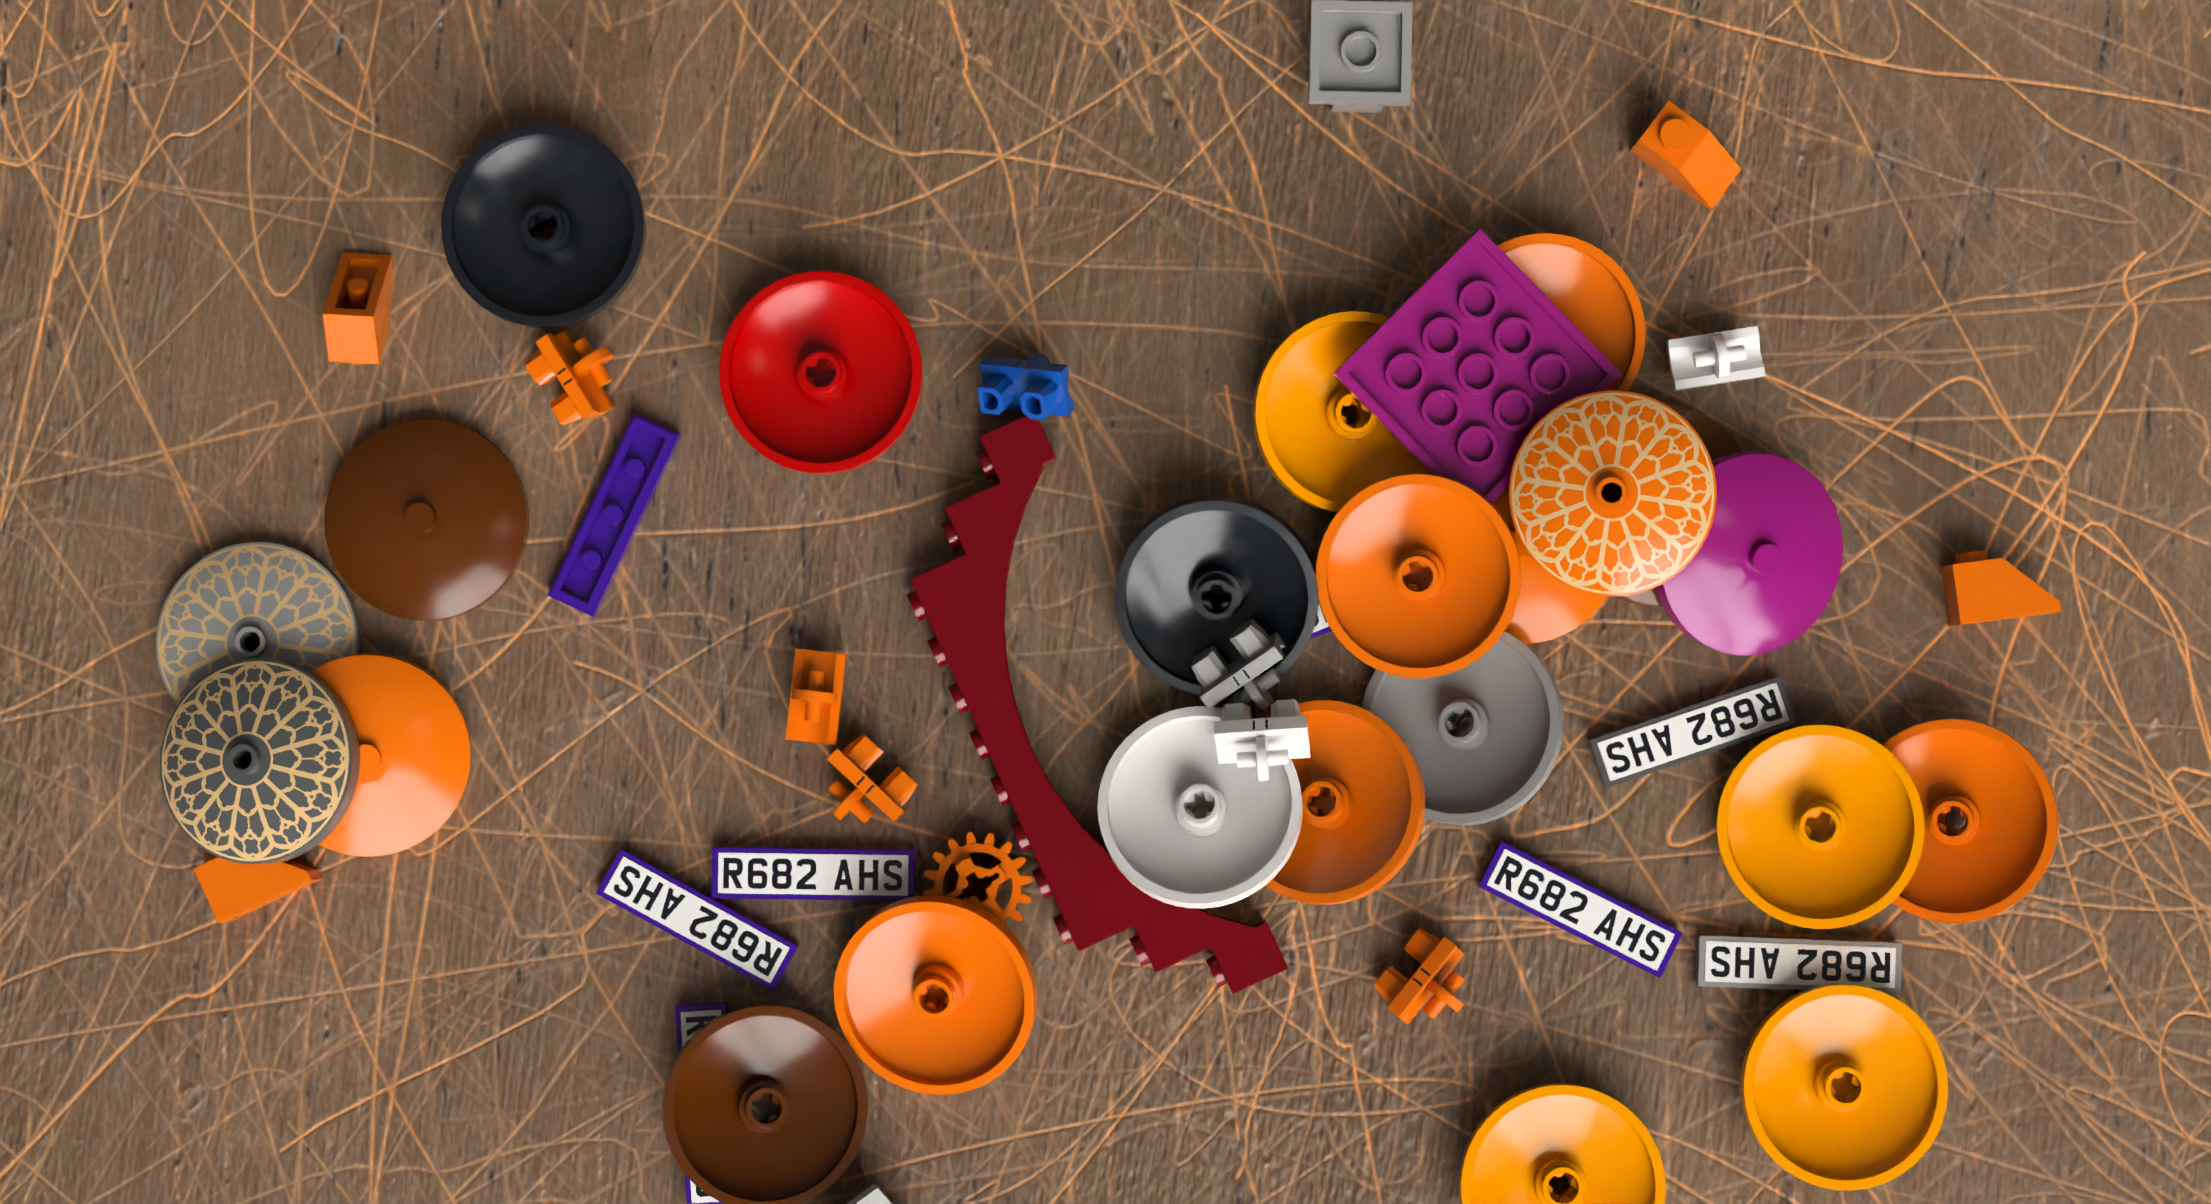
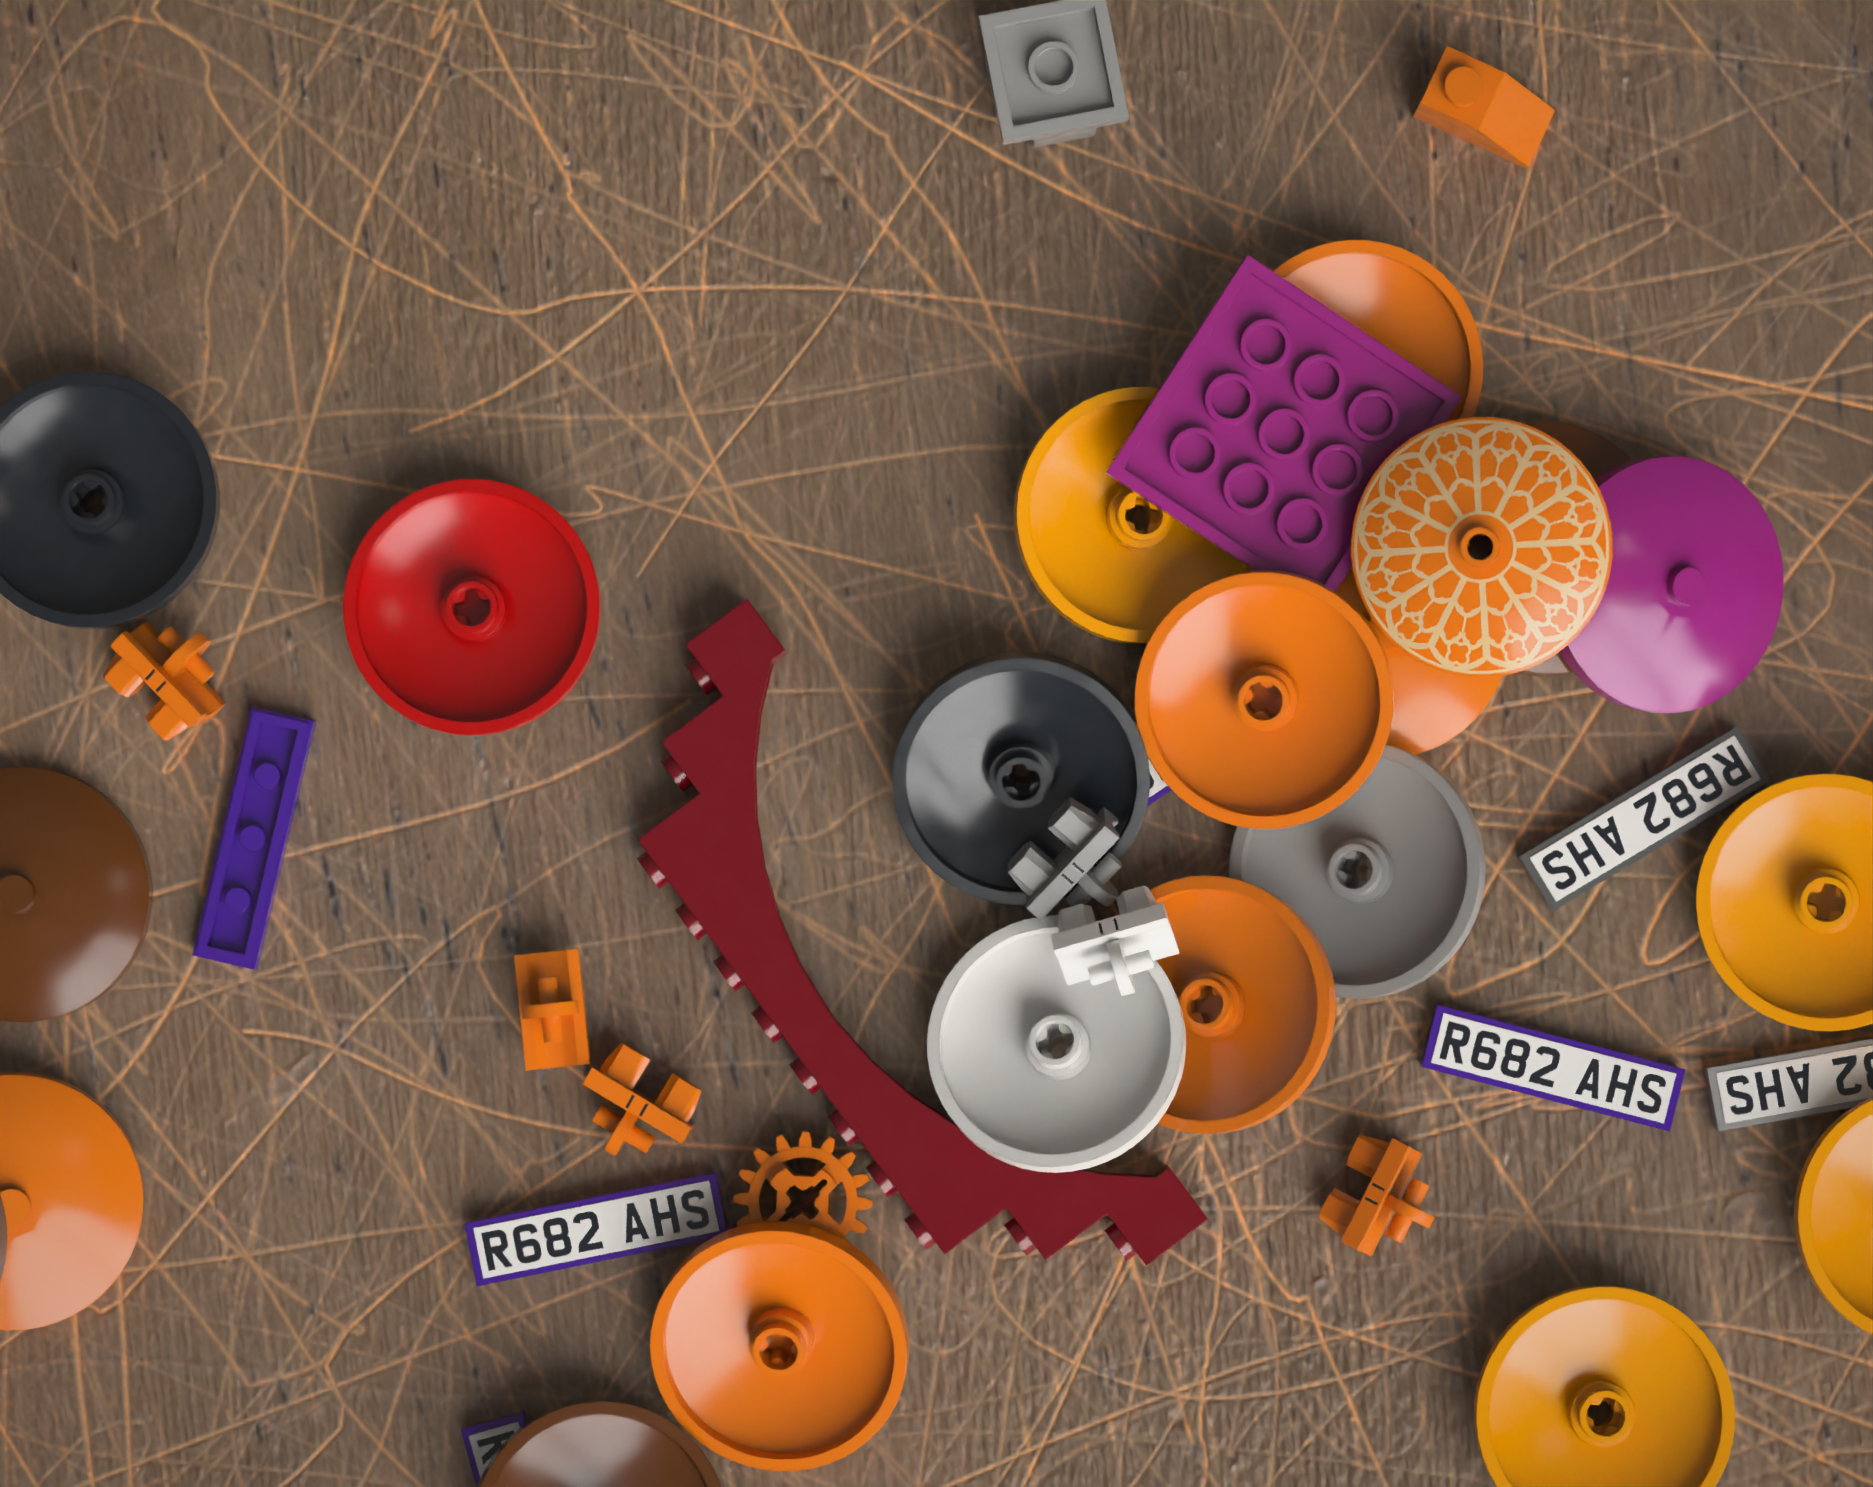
camera: 10 degrees left, 0 degrees up
(697, 919) = (465, 1316): tile -> none
(1025, 386) = (728, 569): blue hips -> none
(1715, 358) = (1573, 351): white hips -> none

